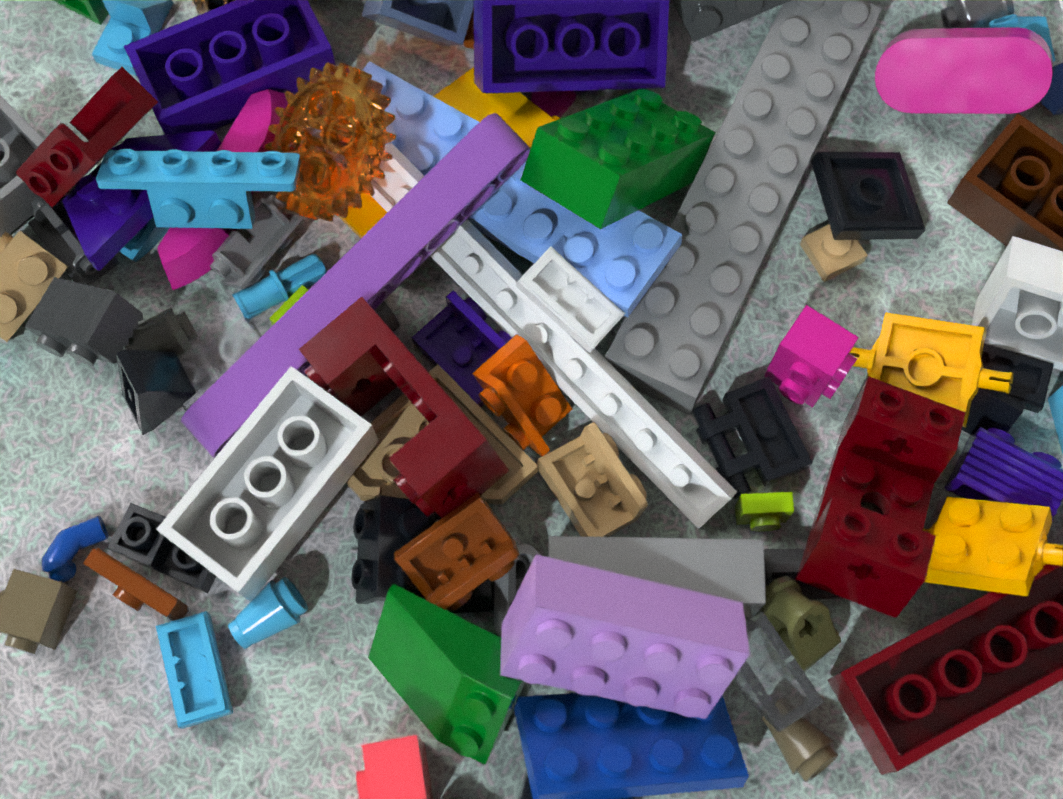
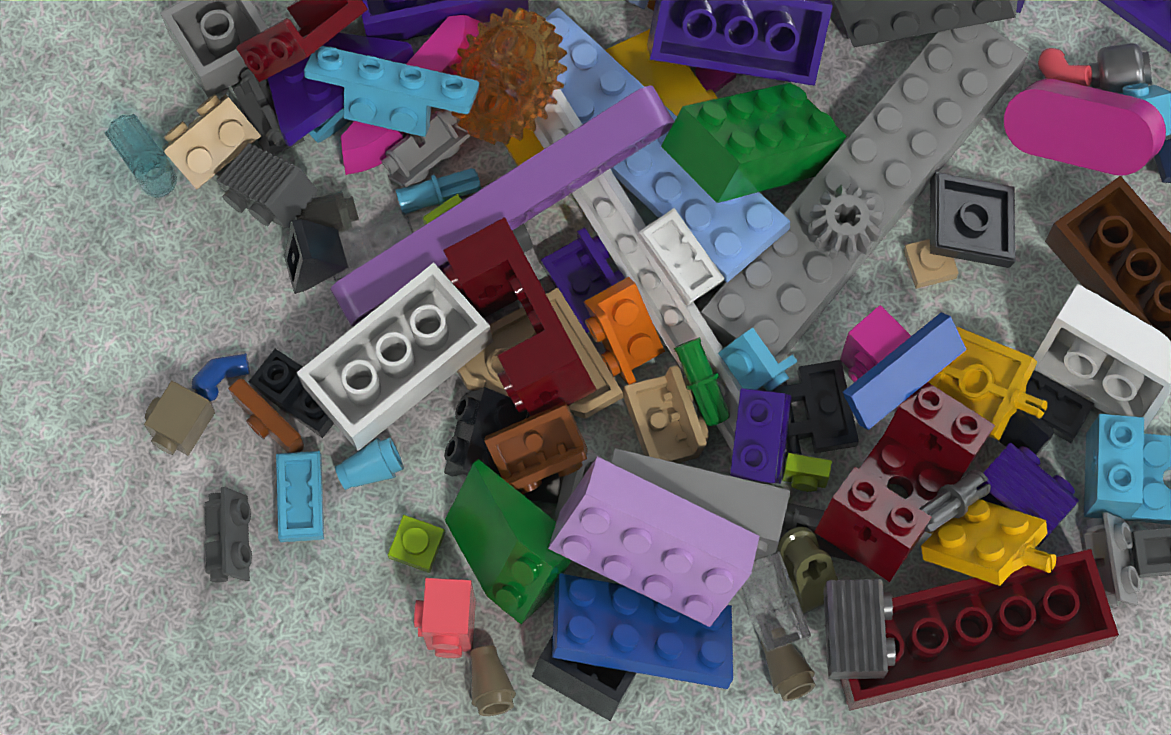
camera: 15 degrees right, 0 degrees up
(115, 713) = (229, 516): none -> dark grey hinge
(341, 693) = (416, 543): none -> lime plate
(627, 434) = (703, 382): none -> green axle
(680, 401) = (754, 364): none -> medium azure bracket
(710, 484) = (760, 435): none -> dark purple brick
(737, 206) = (844, 236): none -> light grey gear
(853, 373) = (904, 370): none -> tile
(882, 687) = (856, 629): none -> flat silver brick
(905, 16) = (1055, 66): none -> coral arm
(943, 505) = (954, 499): none -> dark grey axle

